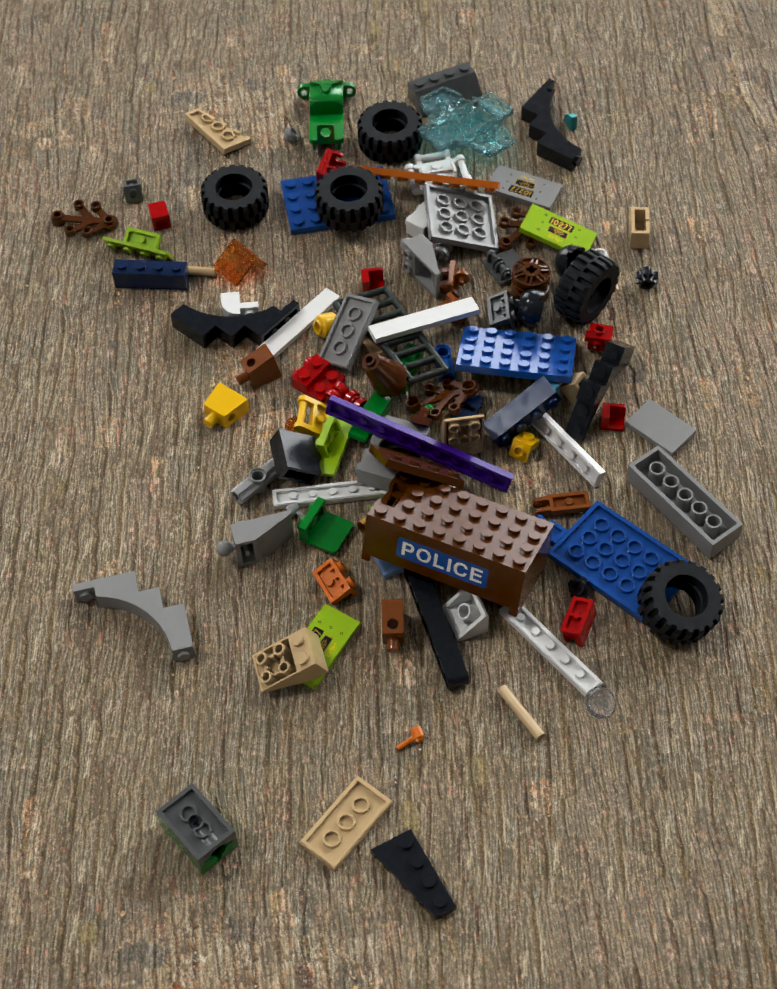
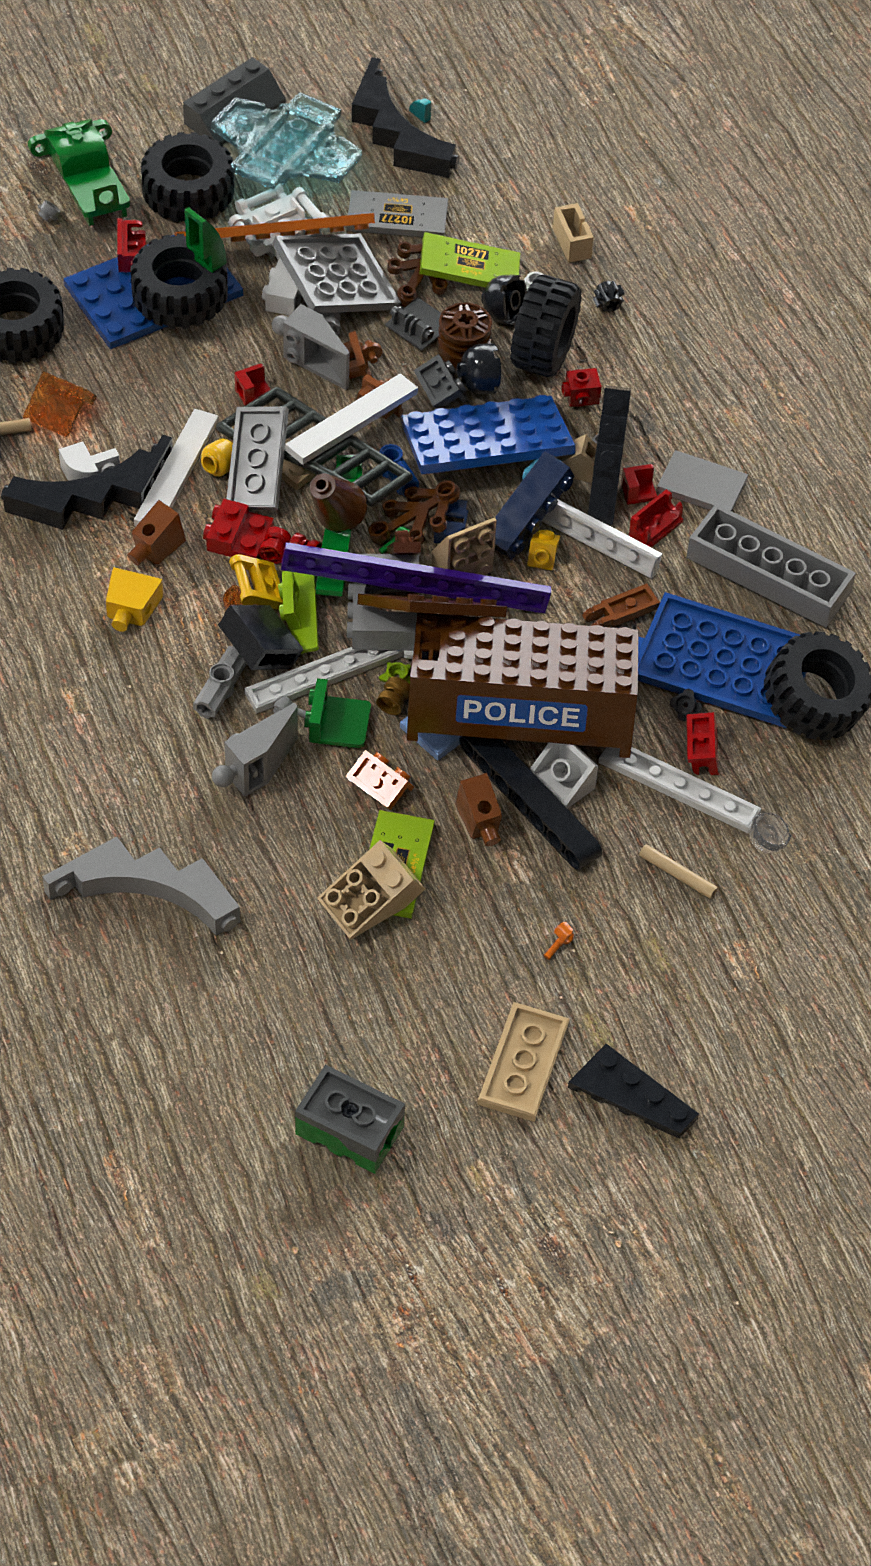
camera: 25 degrees left, 0 degrees up
(366, 174) = (204, 241): none -> green slope
(613, 446) = (656, 519): none -> red hinge

